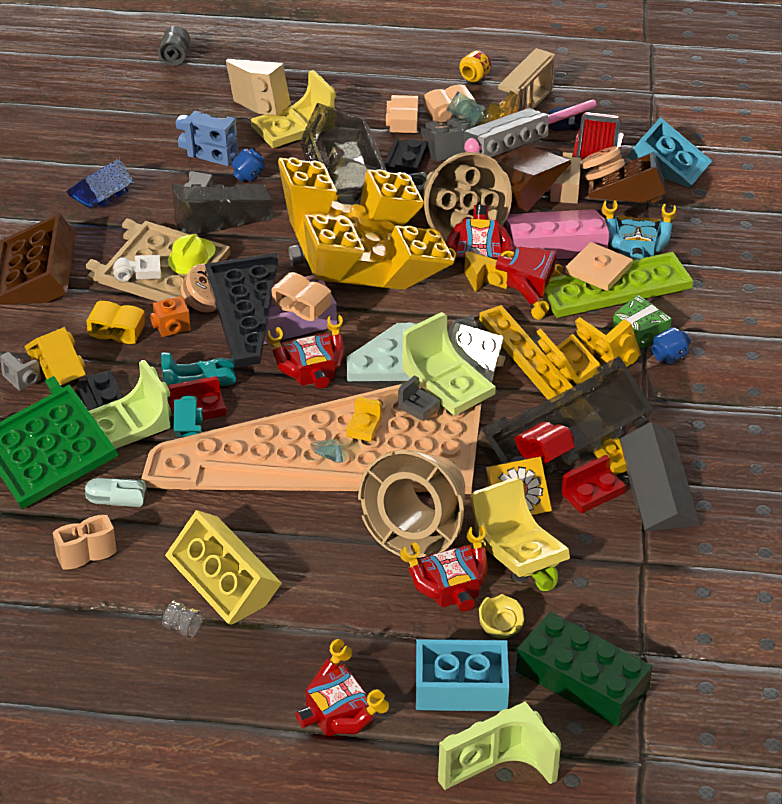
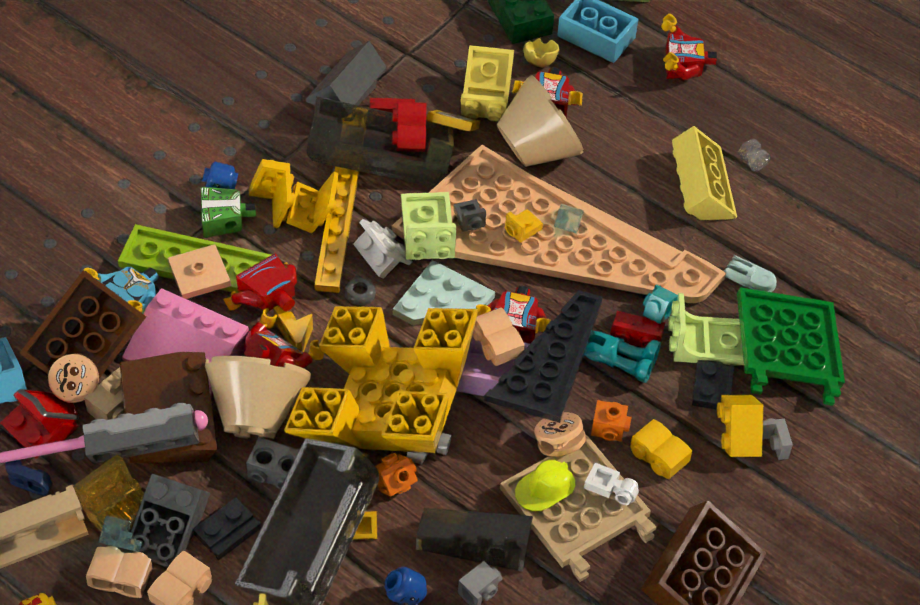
camera: 150 degrees left, 10 degrees up
(84, 542) = (798, 235): light nougat brick -> none

